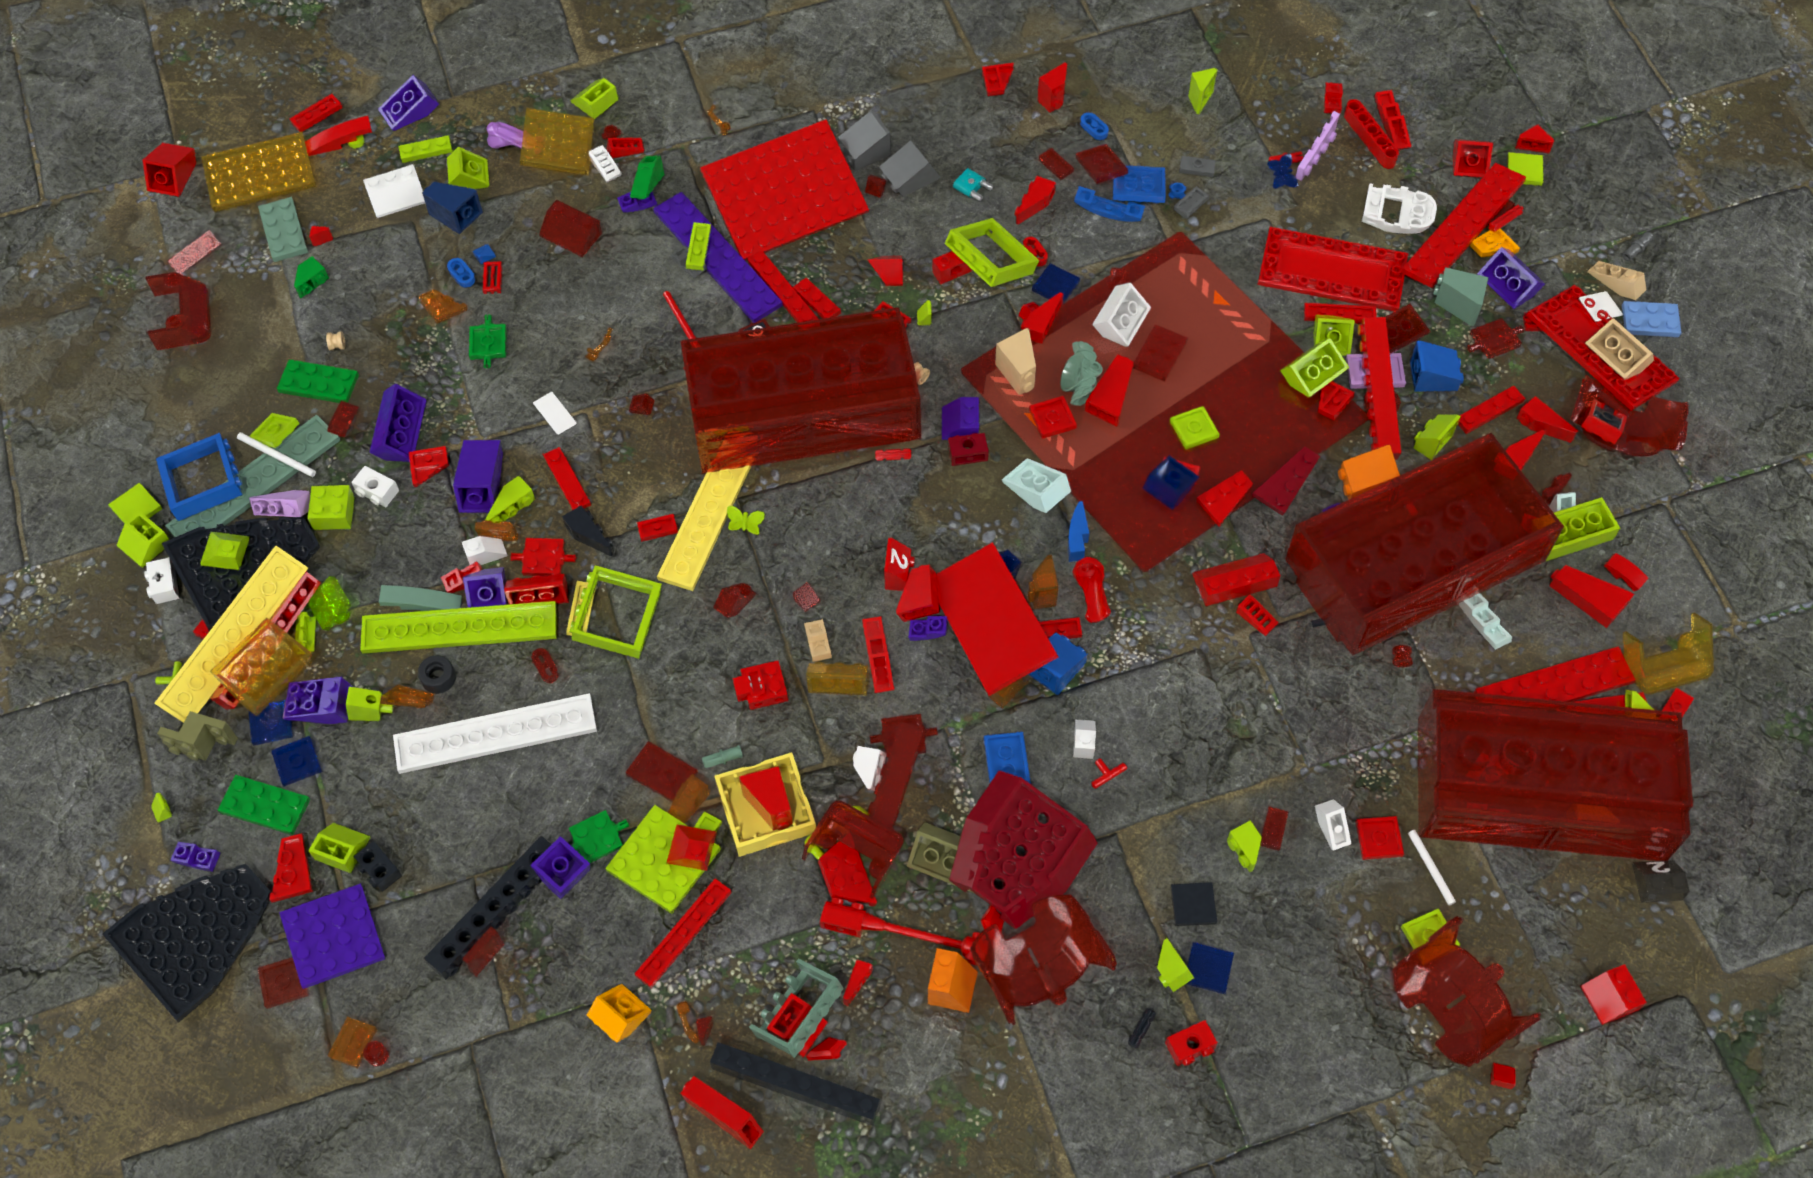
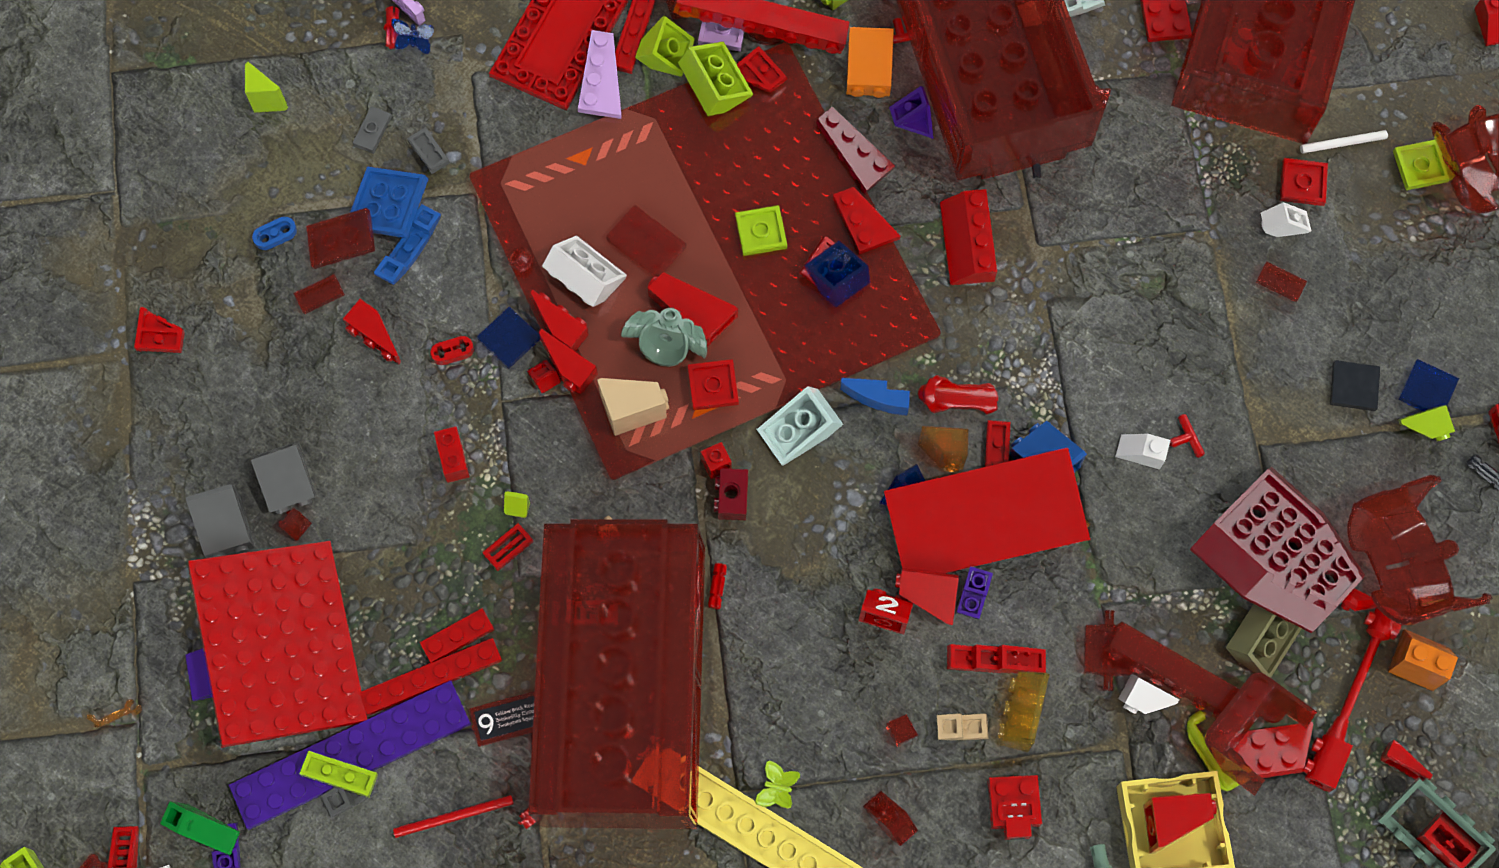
camera: 80 degrees left, 10 degrees up
(827, 1049) = (1480, 808): red piece -> none
(889, 269) = (432, 532): red slope -> none
(960, 417) = (687, 493): dark purple slope -> none
(970, 182) = (322, 406): teal piece -> none
(979, 263) = (464, 421): lime window -> none
(993, 431) = (714, 459): none -> red brick
(1006, 754) = (1157, 542): blue tile -> none
(1052, 88) = (206, 264): red slope -> none
(1070, 308) = (559, 323): none -> red slope
(1177, 190) = (405, 156): blue plate -> none
(1246, 843) = (1298, 312): lime slope -> none
(1261, 611) = (1006, 239): red slope -> none
(1284, 295) = (600, 79): none -> lavender wing

